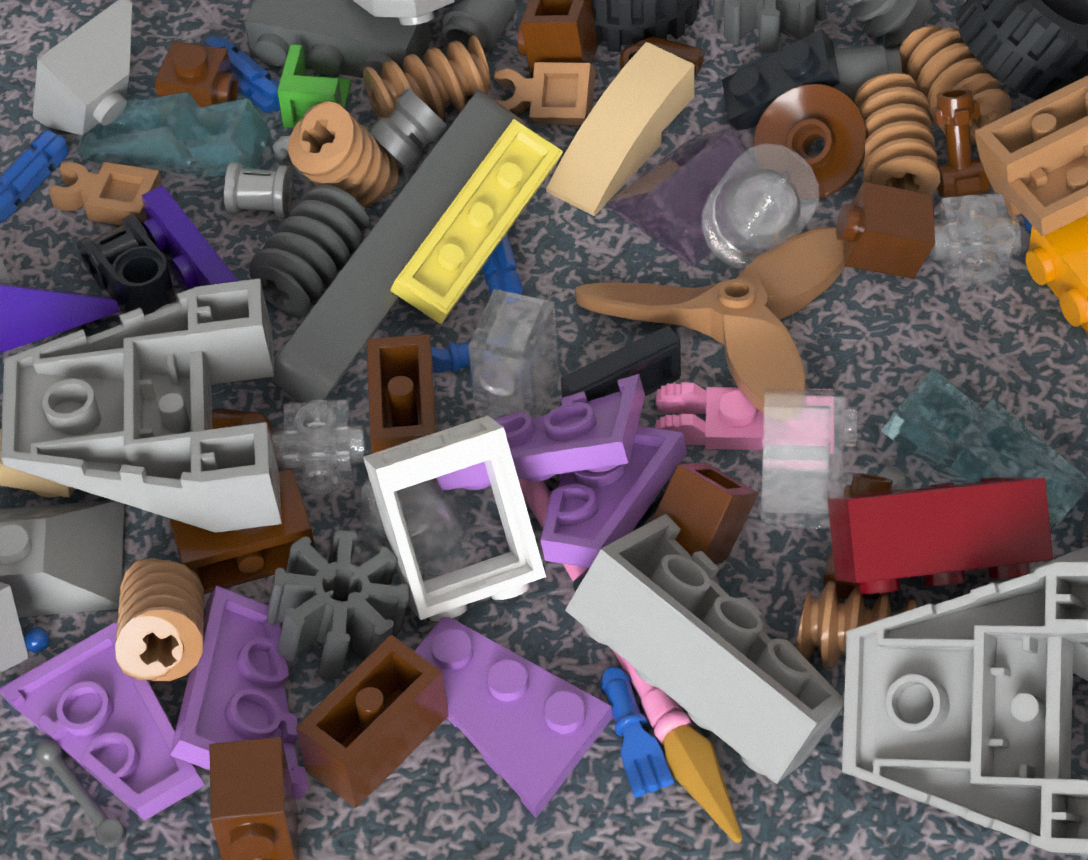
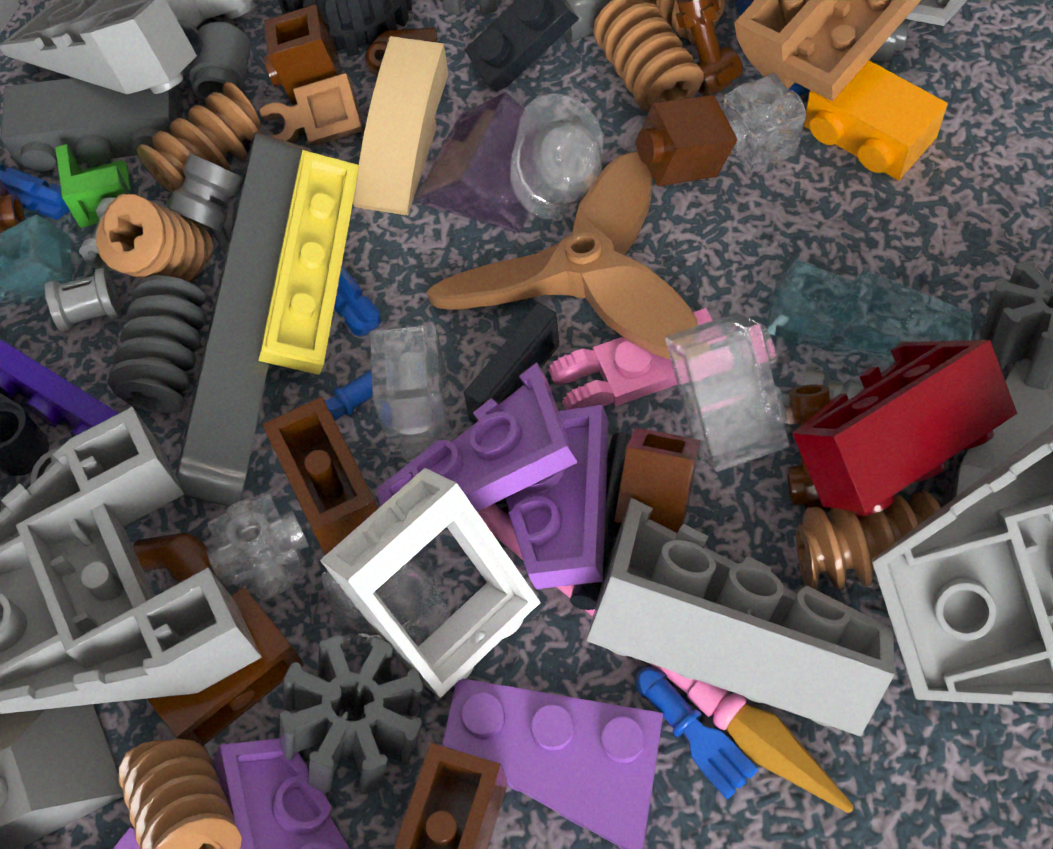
camera: 20 degrees left, 10 degrees up
(814, 114) = (573, 52): reddish brown dish -> none

